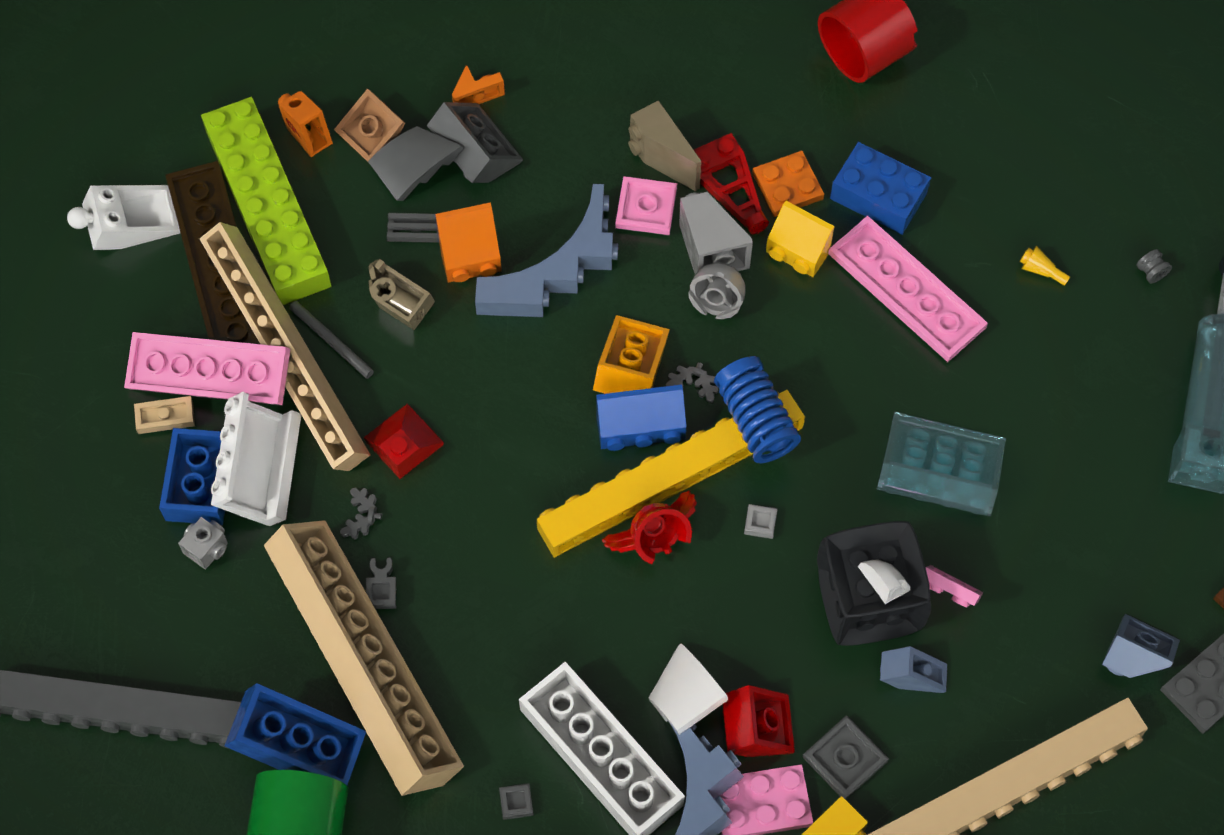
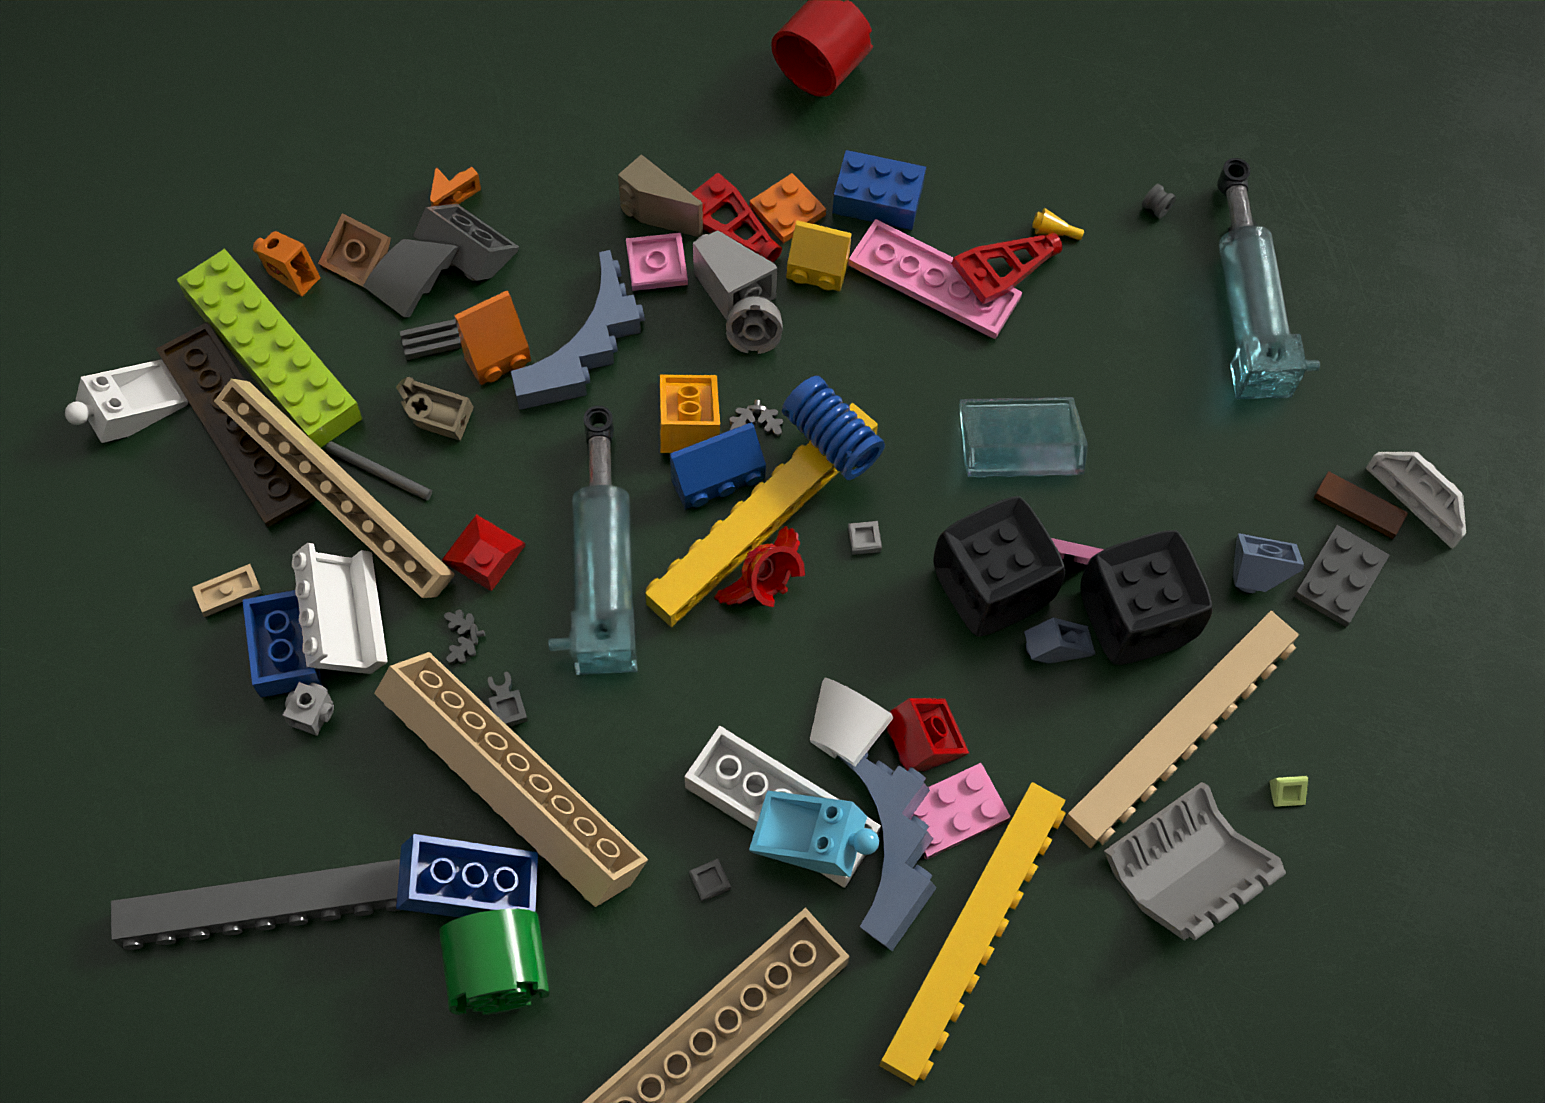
camera: 20 degrees left, 0 degrees up
(207, 368) = (259, 530): bright pink plate -> none
(488, 540) = (604, 612): none -> clear light blue piece
(617, 784) = (812, 832): none -> medium azure slope
(845, 758) = (1020, 744): dark grey tile -> none
(884, 579) = (1014, 557): white brick -> none
(951, 300) = (982, 277): none -> red plate
(1006, 651) = (1145, 597): none -> black piece

